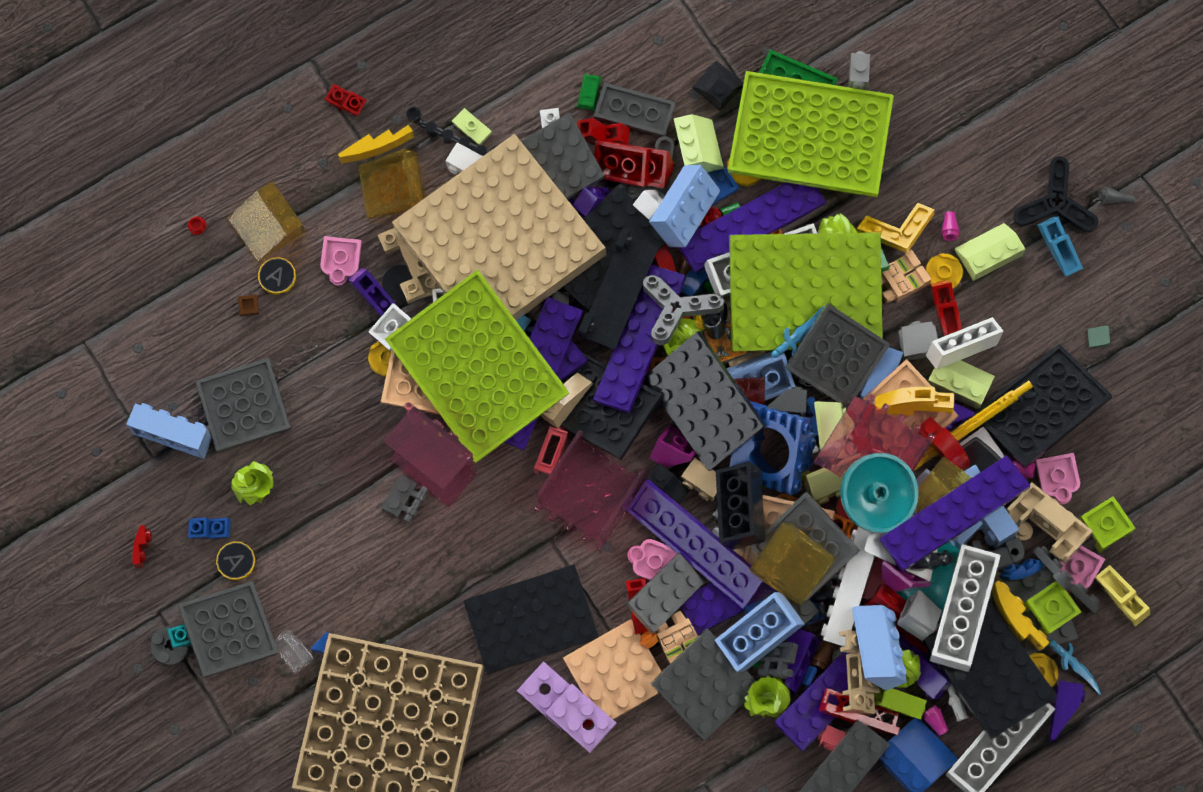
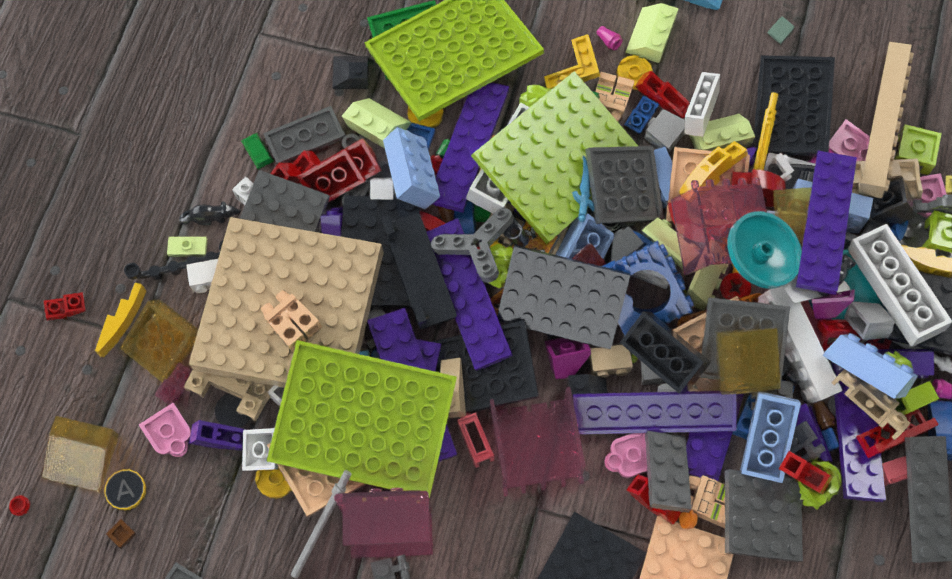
camera: 45 degrees left, 5 degrees down
(370, 227) = (173, 387): none -> clear pink slope
(417, 401) = (338, 488): none -> light grey bar
(489, 244) = (289, 312): none -> light nougat hips
(506, 113) = (206, 214): none -> black animal
(757, 674) = (805, 472): none -> red brick
(914, 312) = (641, 115): none -> blue slope
(983, 446) = (783, 164): none -> white bracket
(1034, 546) = (895, 205): none -> black slope
(1101, 478) = (885, 120): none -> tan brick

